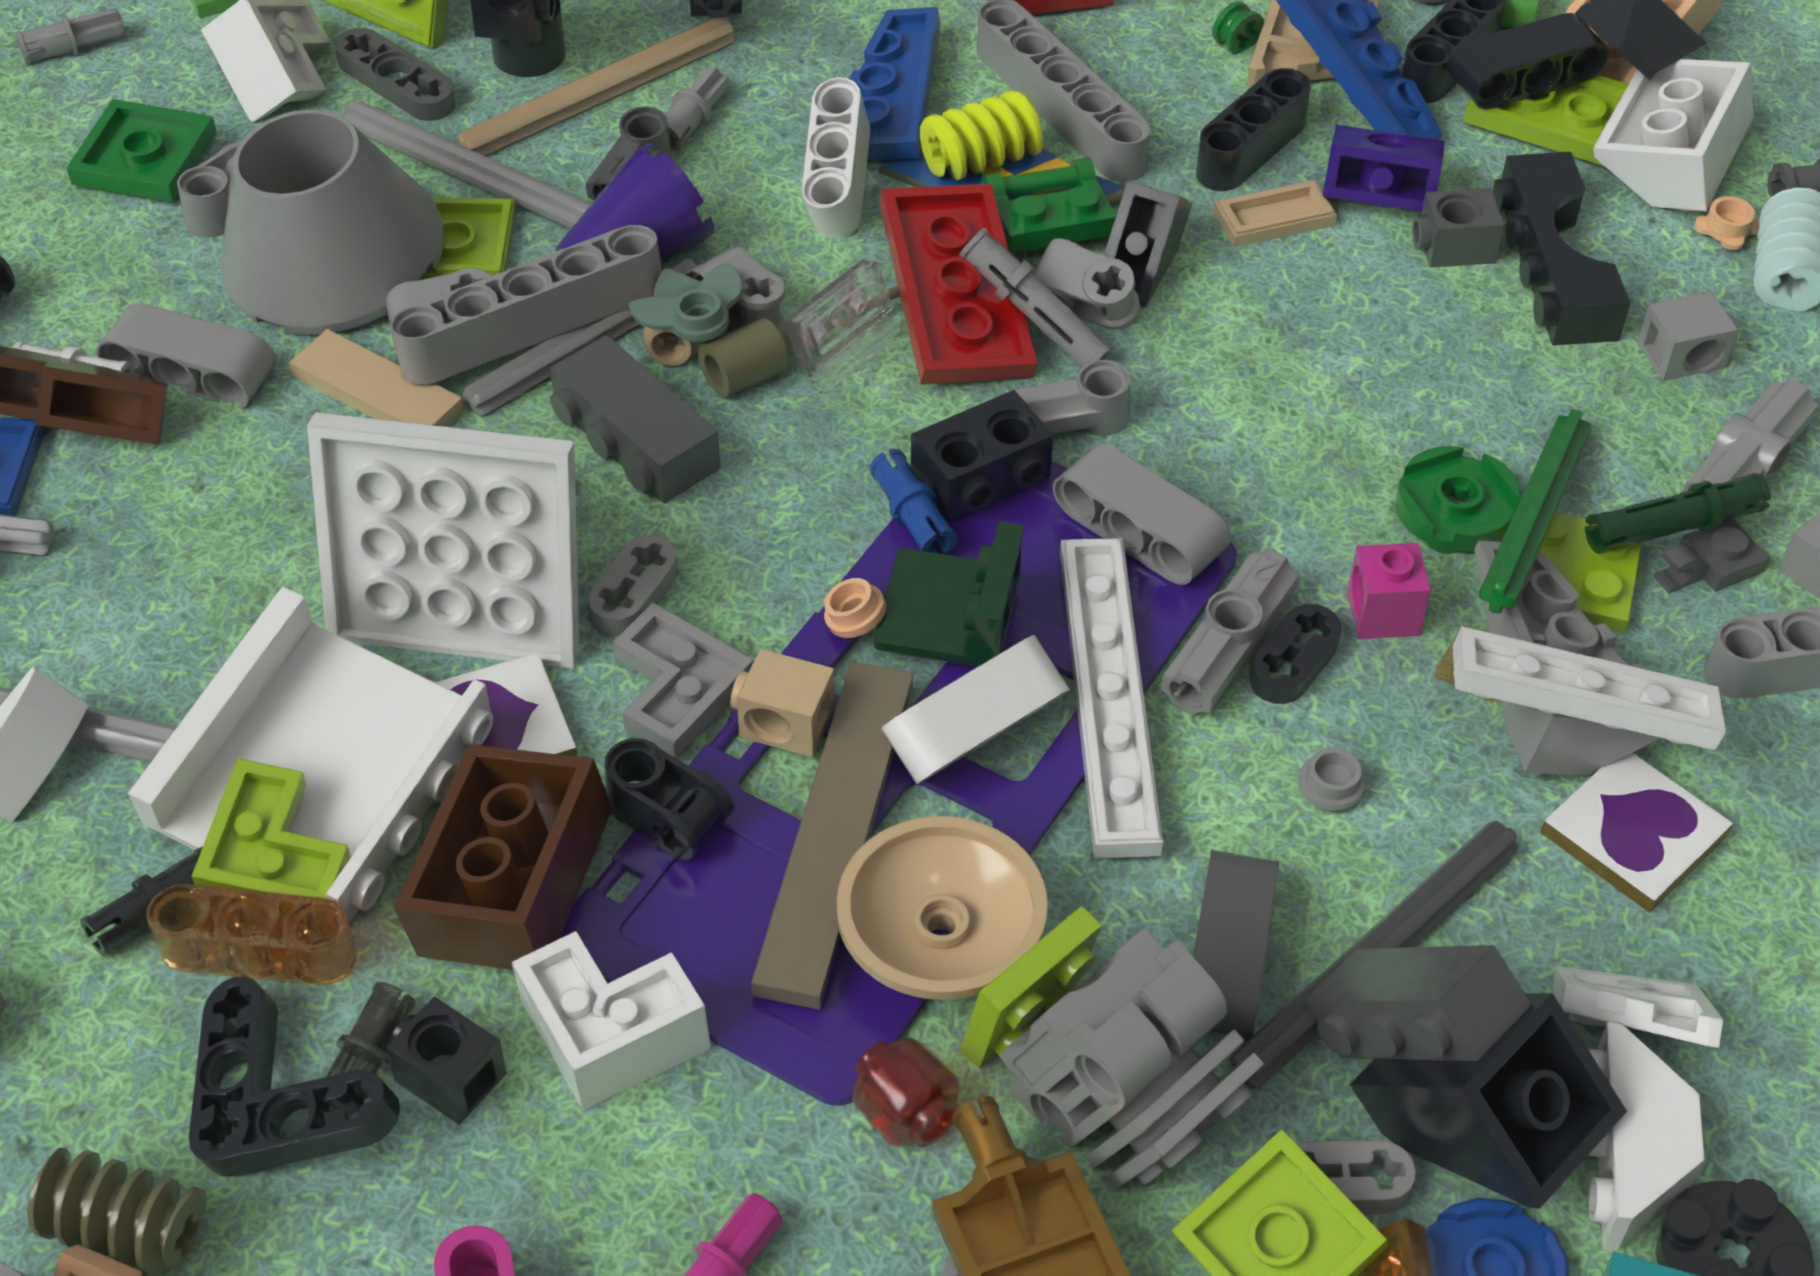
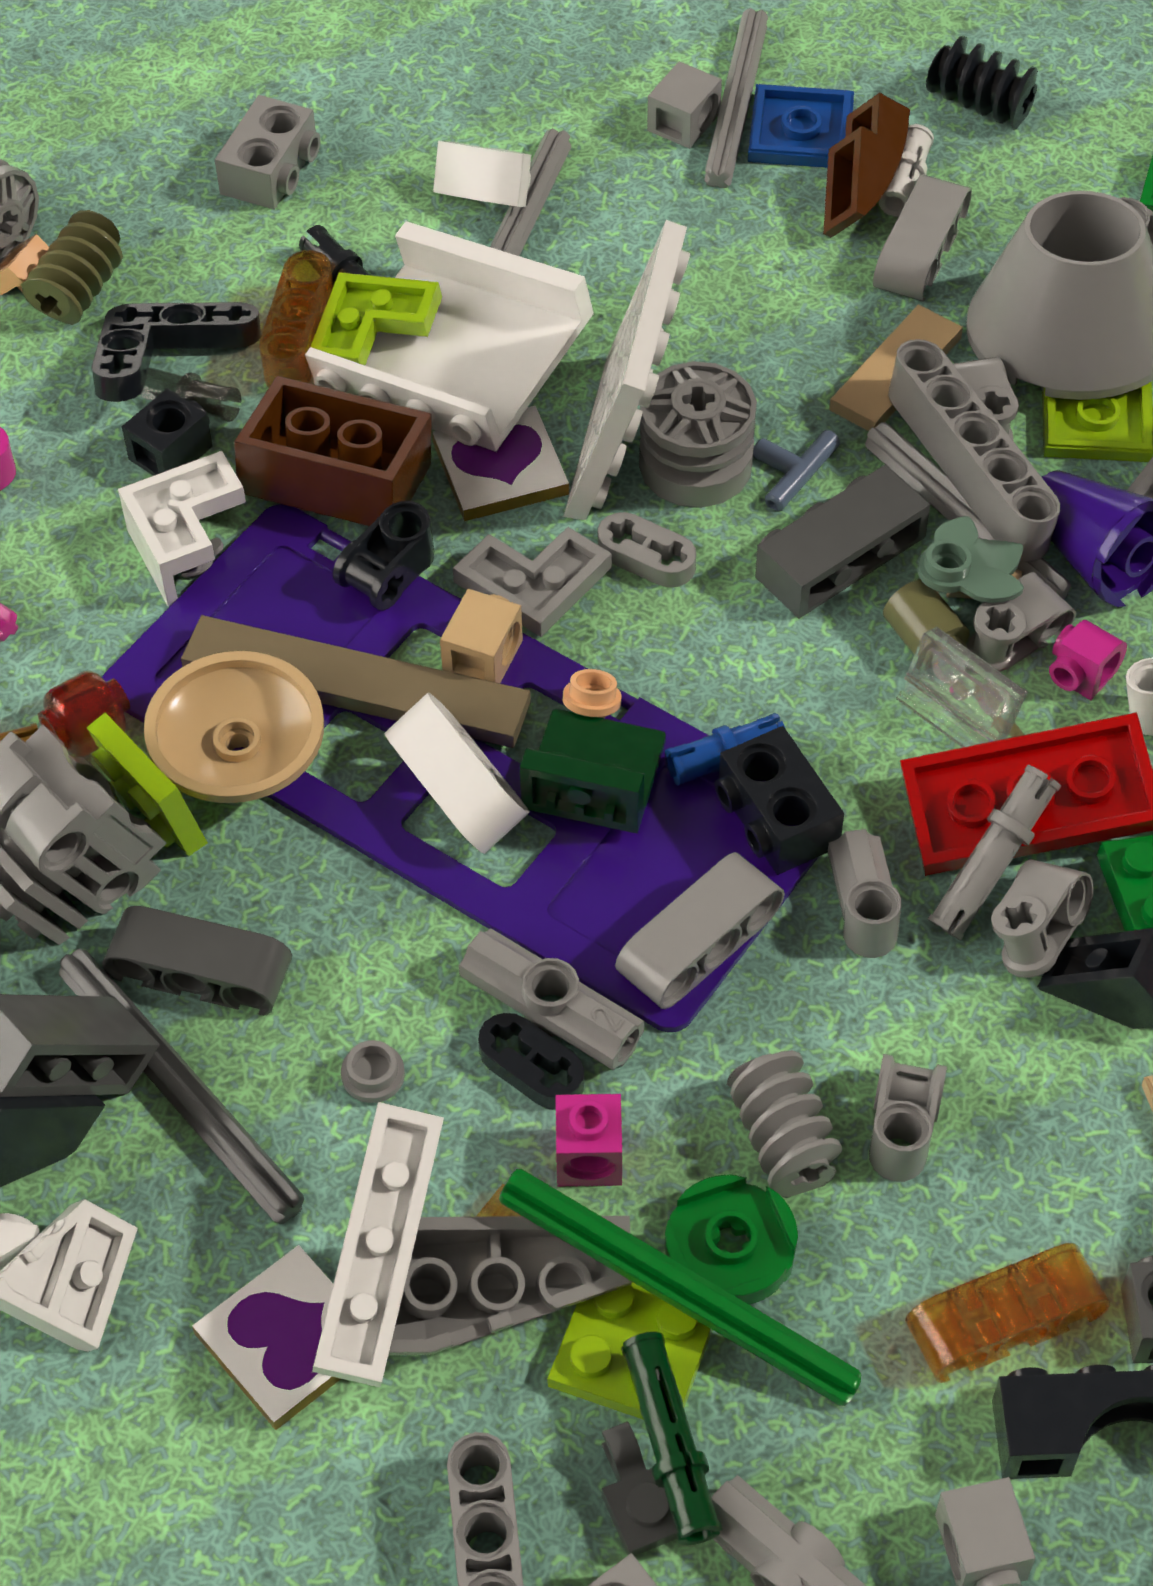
camera: 95 degrees right, 5 degrees up
(785, 247) = (1086, 658): none -> dark pink plate
(1110, 700) = (486, 893): white tile -> none
(1313, 379) = (906, 1110): none -> light grey piece
(1335, 450) = (785, 1122): none -> light grey piece
(1485, 320) = (1006, 1308): none -> clear orange beam

